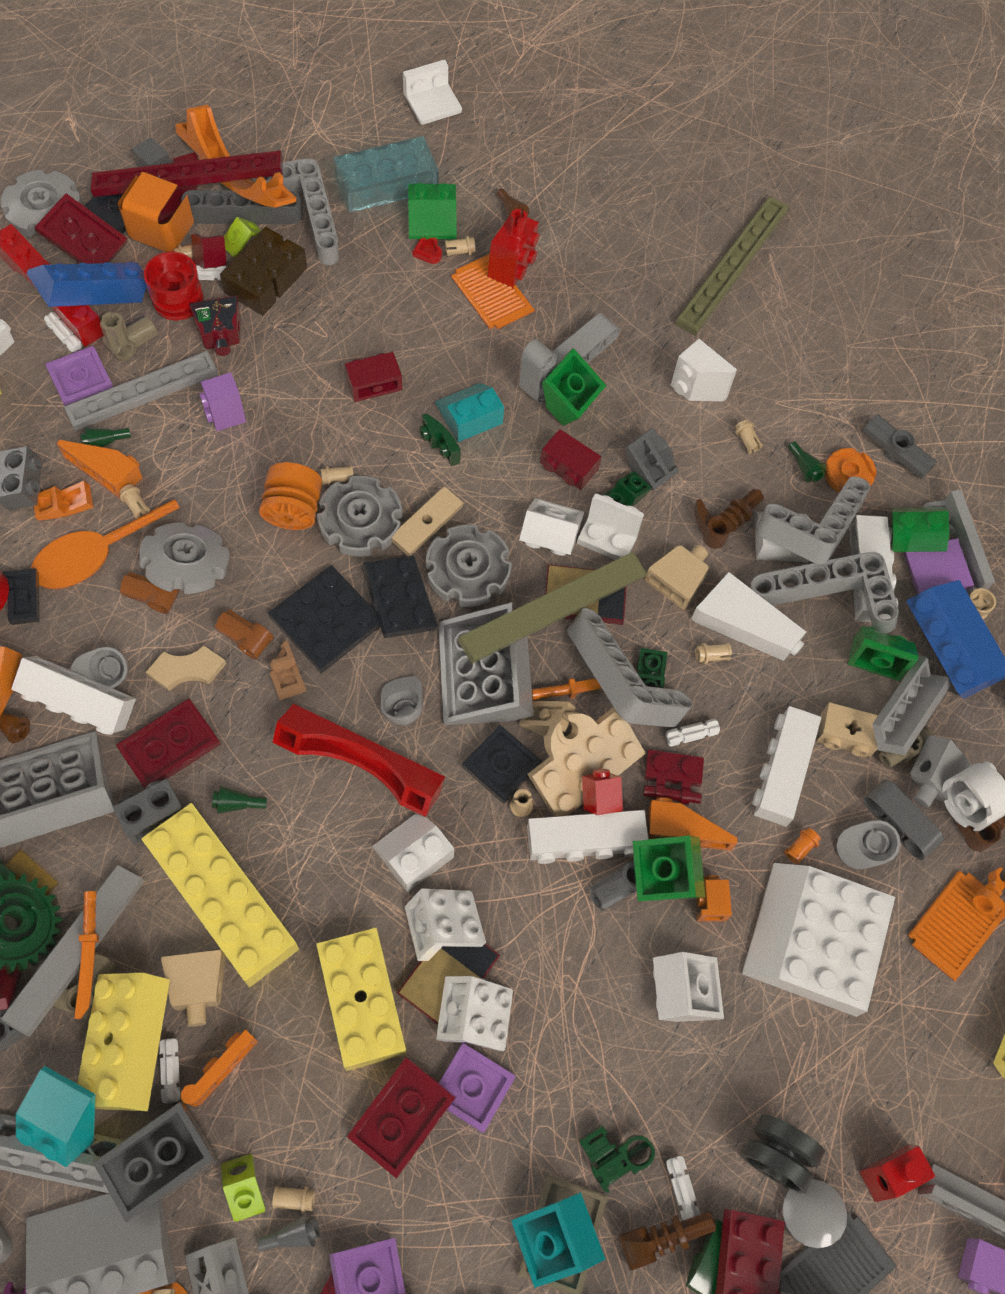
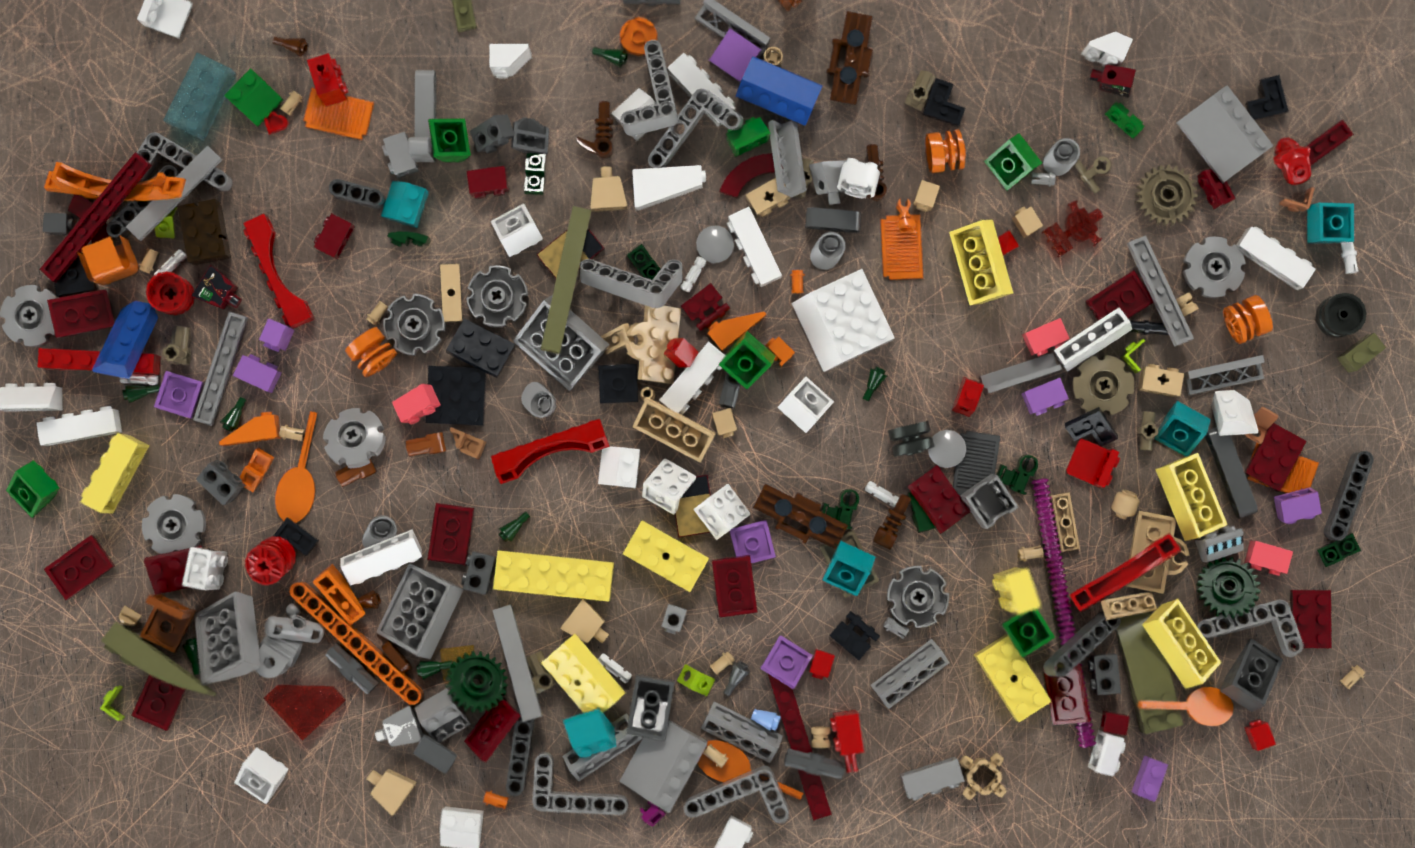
camera: 40 degrees left, 20 degrees up
(42, 336) = (135, 392): none -> dark green cone
(88, 942) = (527, 659): orange sword -> none
(167, 421) = (256, 373): none -> medium lavender brick
(198, 666) = (421, 483): tan tile -> none
(208, 251) = (165, 253): dark red panel -> none
(218, 1069) = (635, 647): orange plate -> none
(278, 583) = (416, 404): none -> coral brick
(286, 216) = (159, 209): none -> light grey tile
(309, 1082) = (680, 612): none -> light grey brick
(310, 319) = (262, 236): none -> red arch
(427, 350) = (349, 189): none -> dark grey beam
(506, 369) = (398, 151): none -> light grey brick
(514, 865) = (673, 430): none -> tan slope
(570, 689) = (613, 310): orange sword -> none
(570, 1110) = (803, 510): none -> reddish brown piece
(575, 916) = (724, 423): none -> tan brick
(610, 527) = (549, 204): white bracket -> none
(620, 419) = (492, 133): none -> dark grey brick
(713, 652) = (665, 219): tan pin -> none
(745, 725) = (715, 244): none -> light grey dish
(749, 437) = (566, 69): tan pin -> none
(799, 1039) = (875, 379): none -> dark green cone
(846, 685) = (745, 172): none -> dark red tile
(920, 529) = (704, 40): green slope -> none

